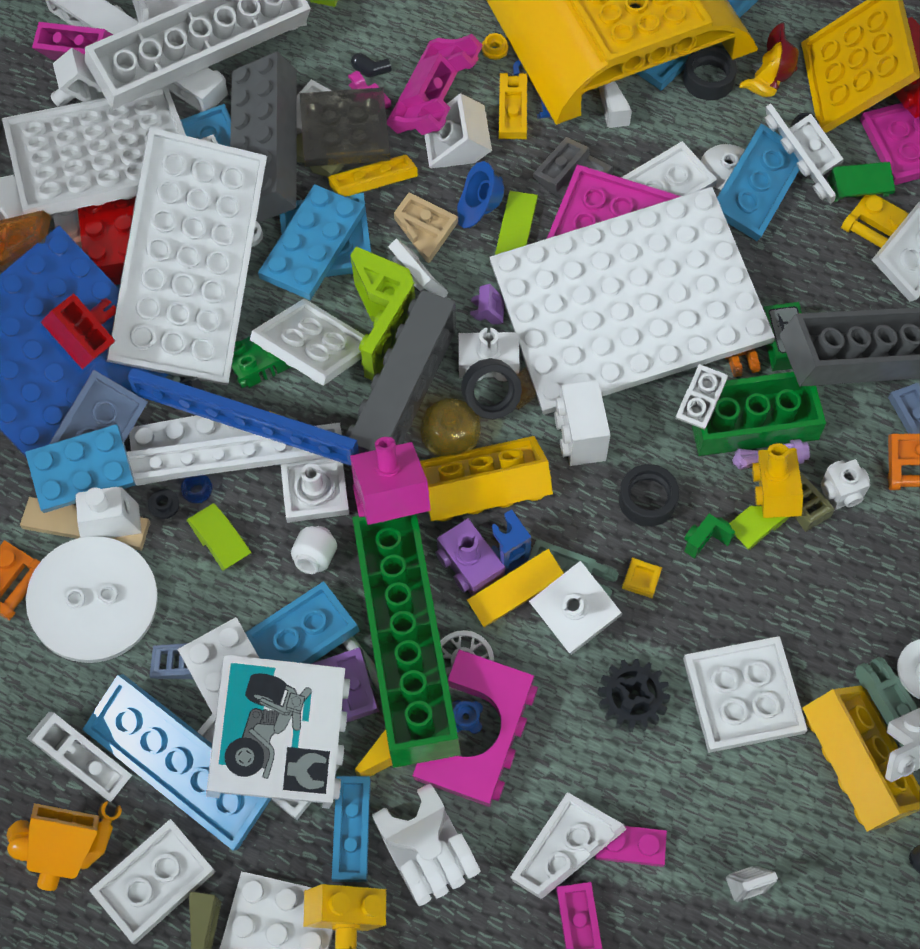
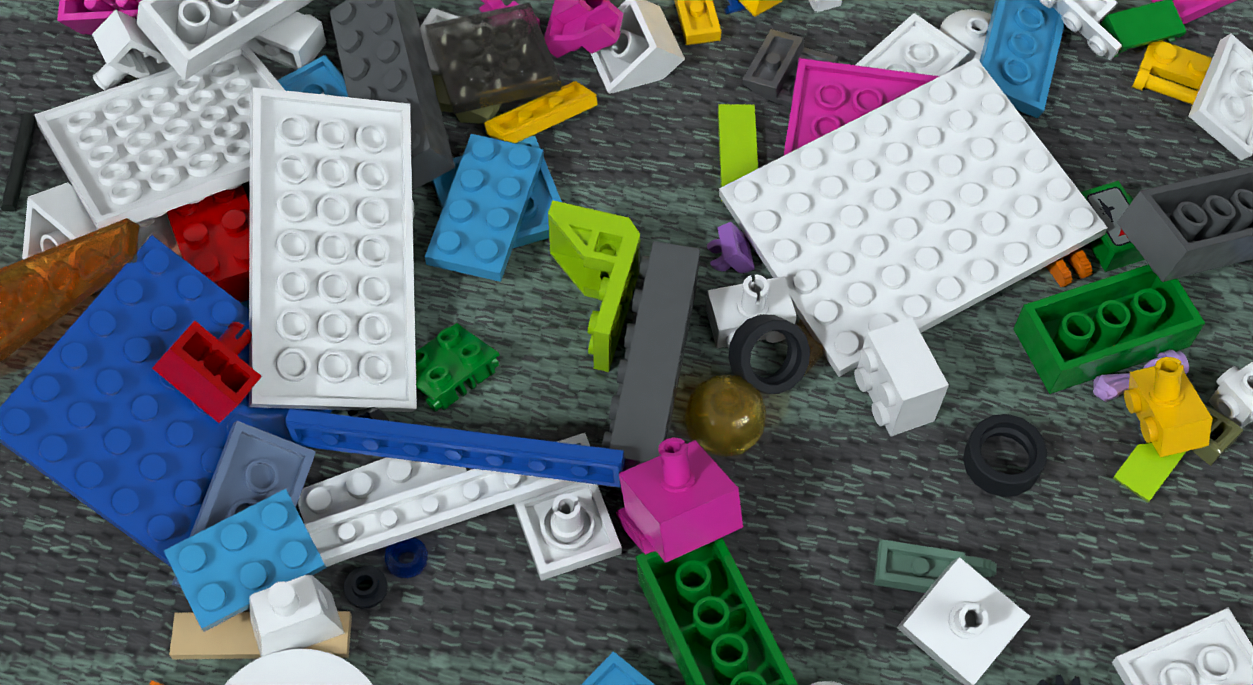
camera: 15 degrees left, 5 degrees down
(219, 536) = (454, 616): lime slope -> none
(310, 341) = (518, 334): white plate -> none
(313, 549) = (588, 610): white head -> none
(421, 276) = (614, 204): white plate -> none
(424, 224) = (622, 163): tan wing -> none
(469, 558) = (800, 582): medium lavender brick -> none
(480, 195) = (683, 103): blue piece -> none
(487, 478) = (801, 469): yellow slope -> none
(514, 544) = (859, 545): blue hinge -> none
(515, 588) = (873, 610): yellow tile -> none
(642, 578) = (1027, 565): yellow tile -> none
(699, 536) = (1097, 482): green bracket -> none
(702, 396) = (1045, 316): white slope -> none

